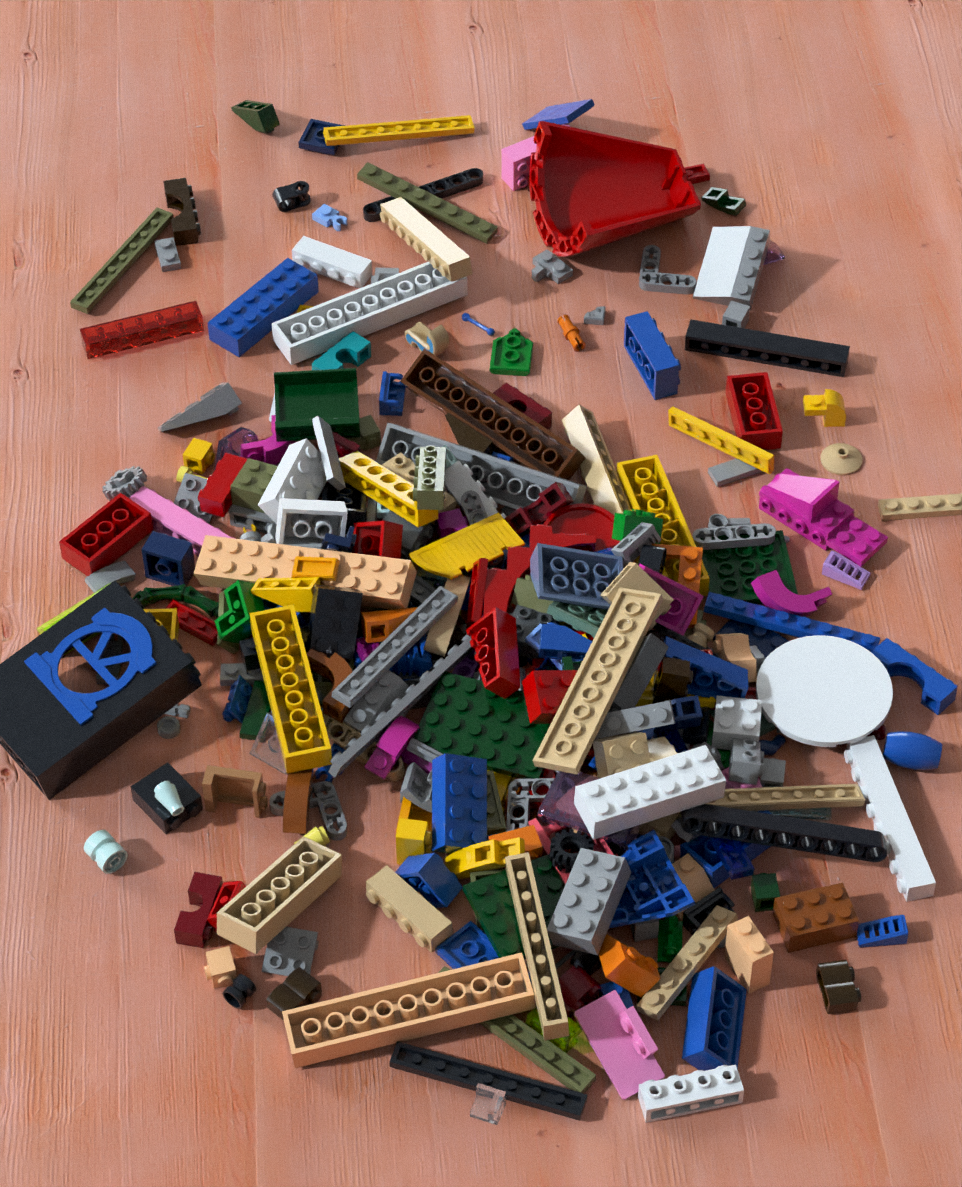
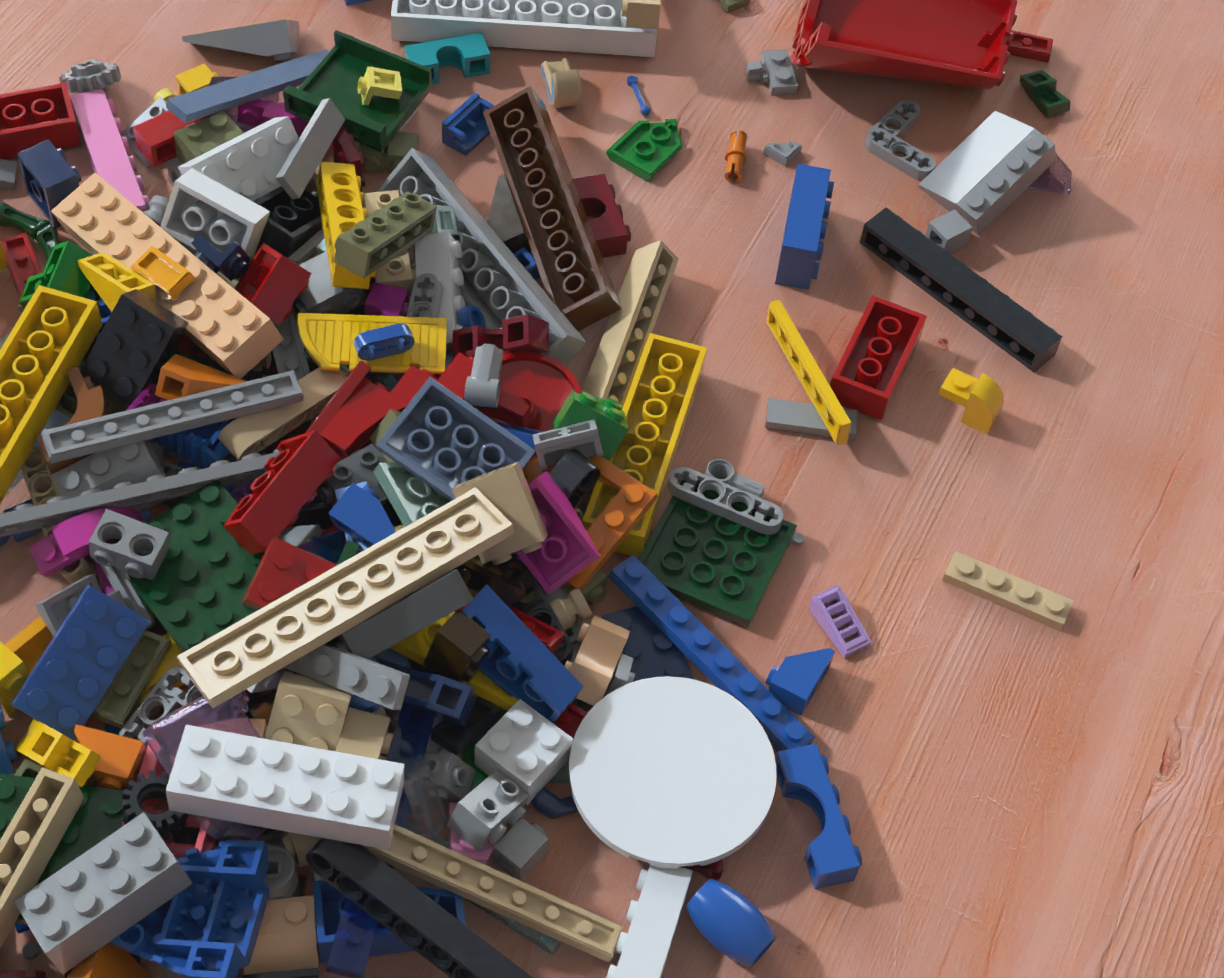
camera: 25 degrees right, 5 degrees up
(246, 434) = (243, 88): none -> sand blue tile
(328, 393) = (379, 83): none -> light yellow bracket
(433, 728) = (133, 537): none -> light grey brick
(479, 542) = (384, 342): none -> blue beam
(505, 507) = (471, 316): none -> blue tile
(561, 532) = (484, 384): none -> light grey piece
(775, 595) = (715, 613): dark pink arch -> none
(814, 512) = (858, 533): dark pink wedge -> none
(841, 459) = (947, 482): tan dish -> none
(849, 611) = (799, 678): none -> blue slope

